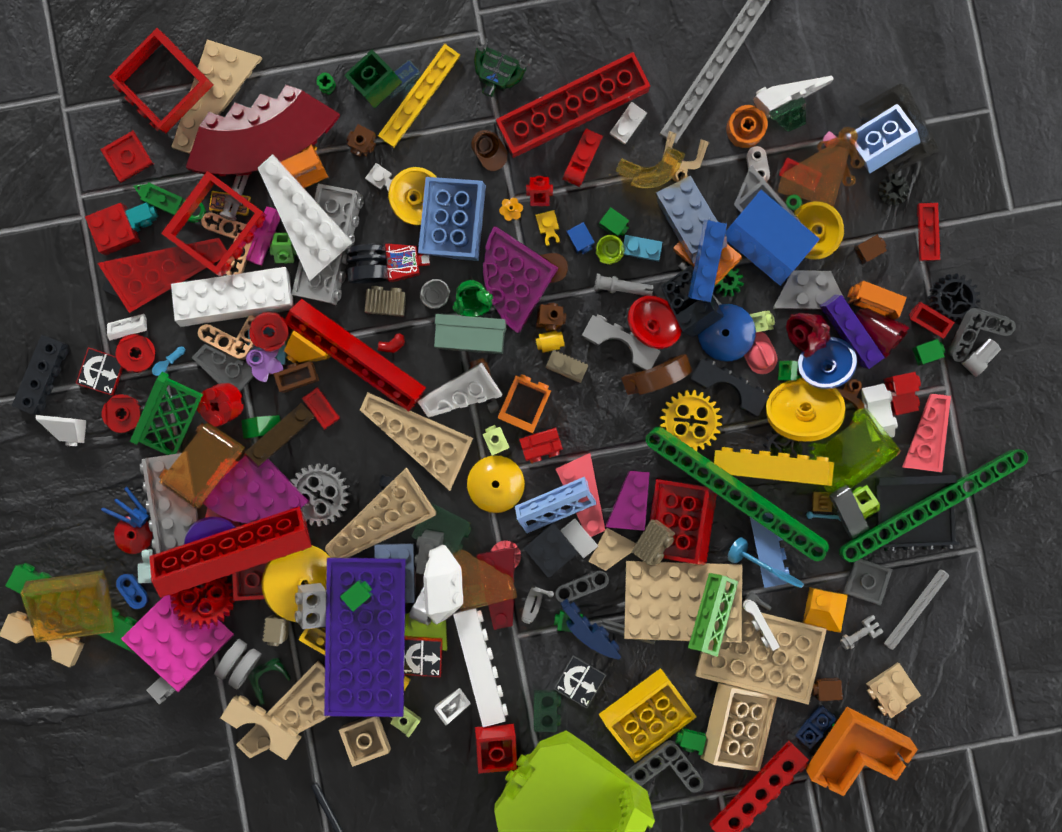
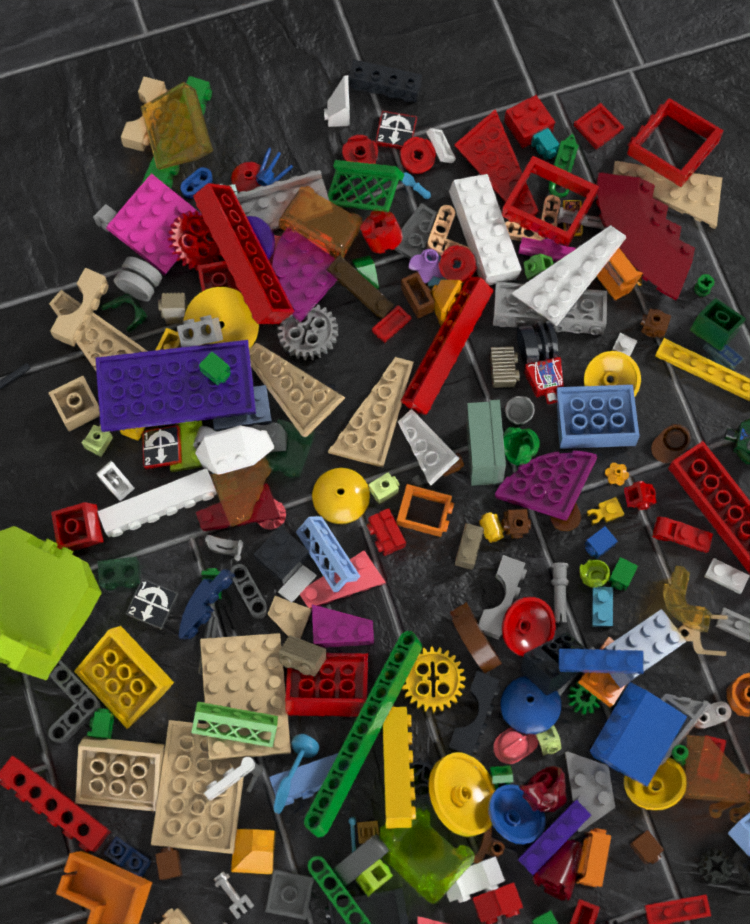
camera: 85 degrees right, 15 degrees down
(393, 346) = (463, 381): red arm -> none

